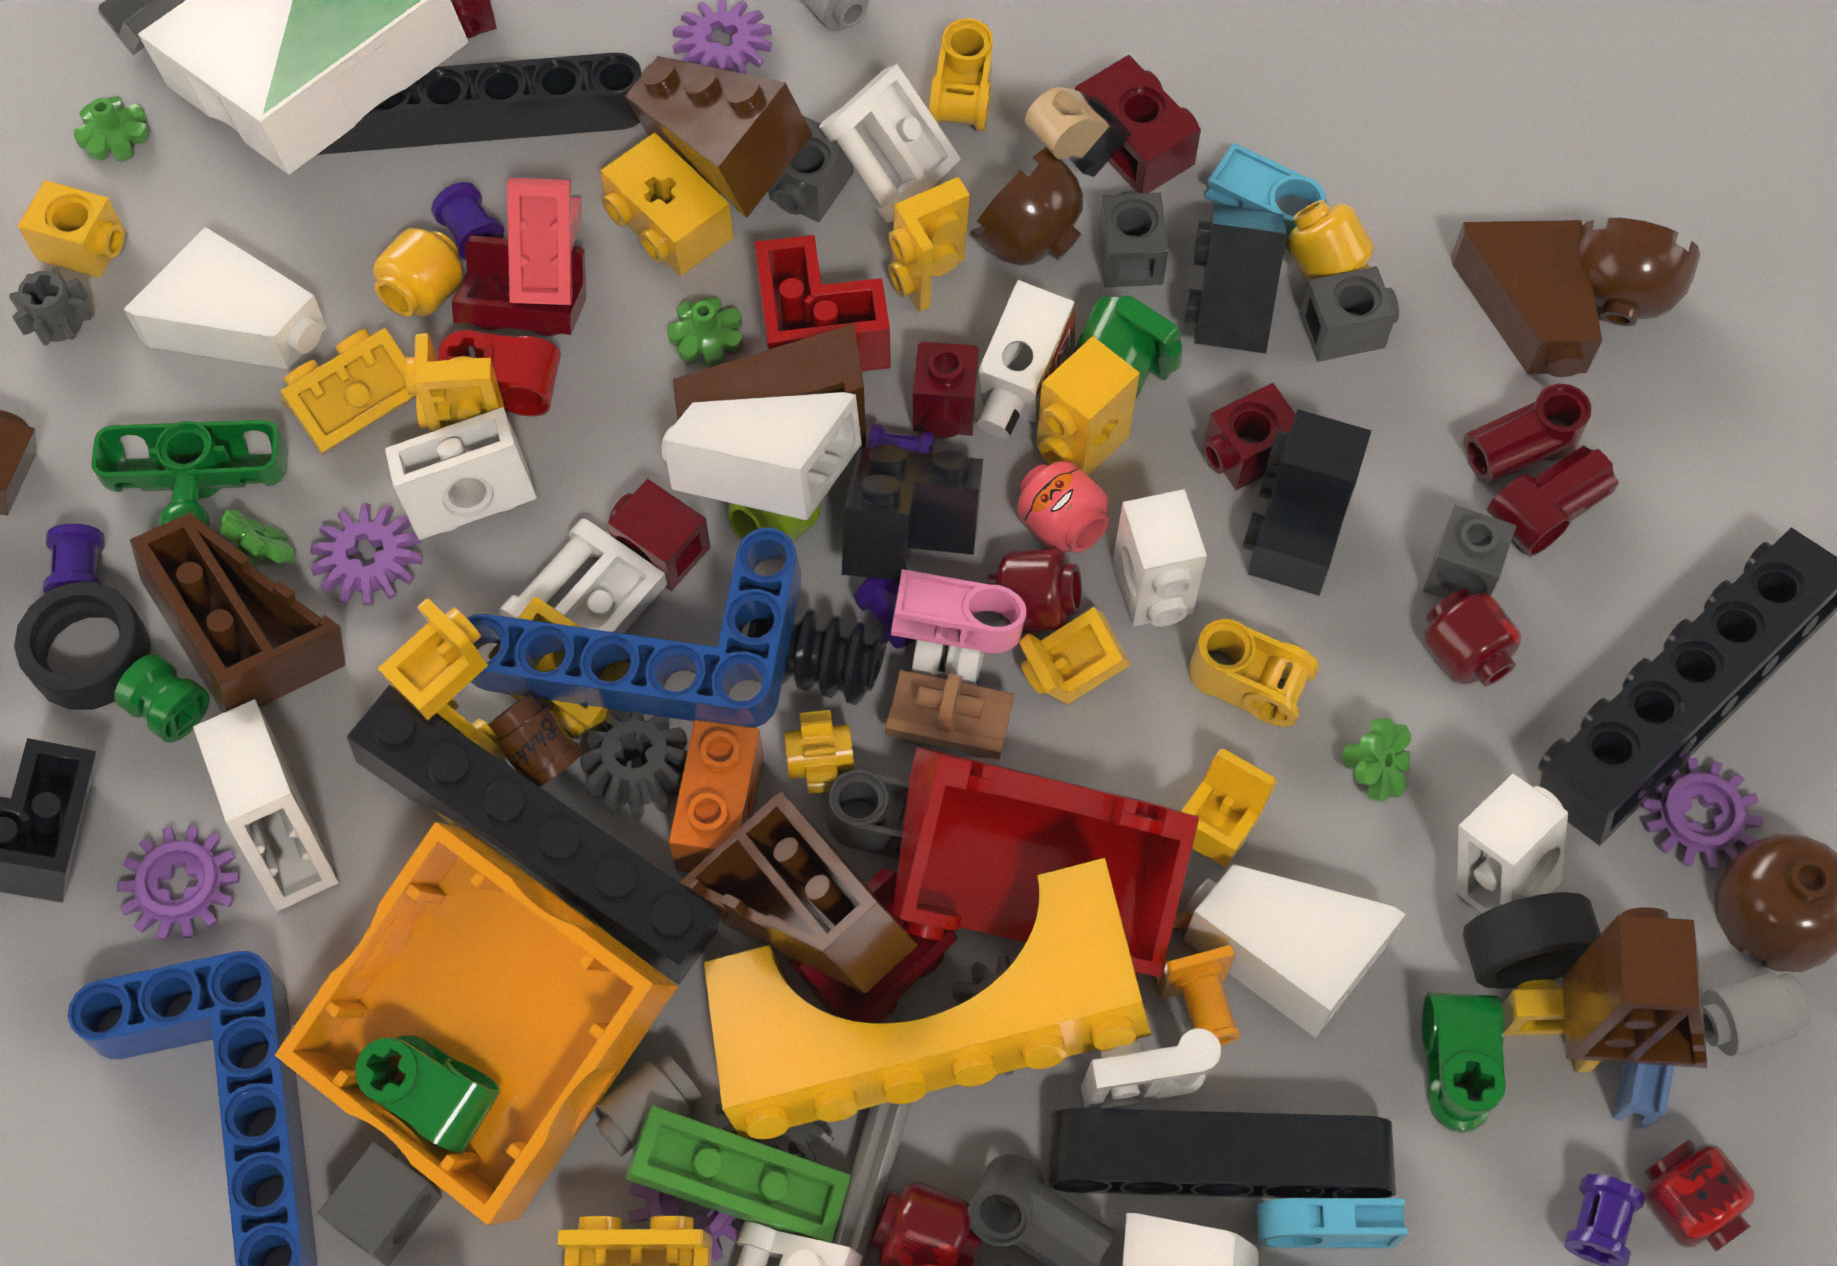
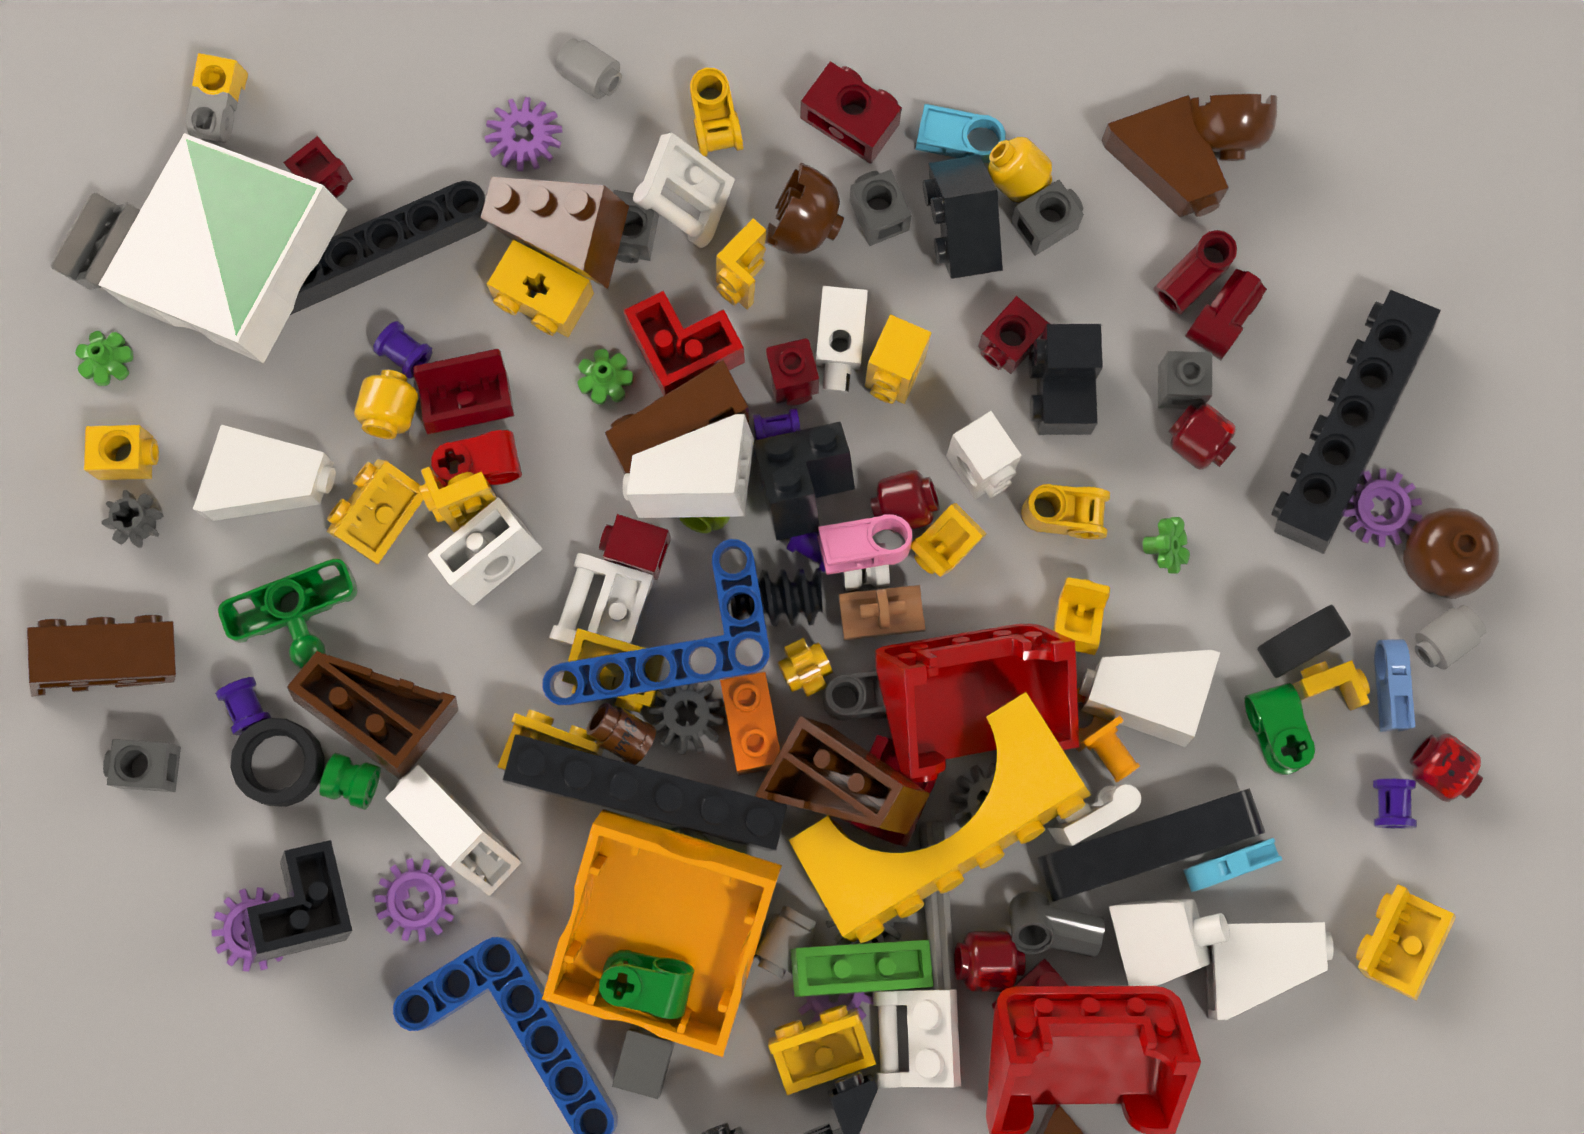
camera: 20 degrees left, 15 degrees up
(255, 541) = (361, 646): bright green plant -> none
(388, 562) = (437, 645): medium lavender gear -> none
(435, 660) = (542, 711): yellow bracket -> none
(541, 239) = (470, 355): coral bracket -> none
(1063, 507) = (903, 434): coral head -> none
(1076, 128) = (816, 144): tan leg -> none
(1135, 335) = (904, 296): green piece -> none
(1511, 846) = (1275, 587): white brick -> none
(1637, 994) = (1380, 670): reddish brown wedge -> none

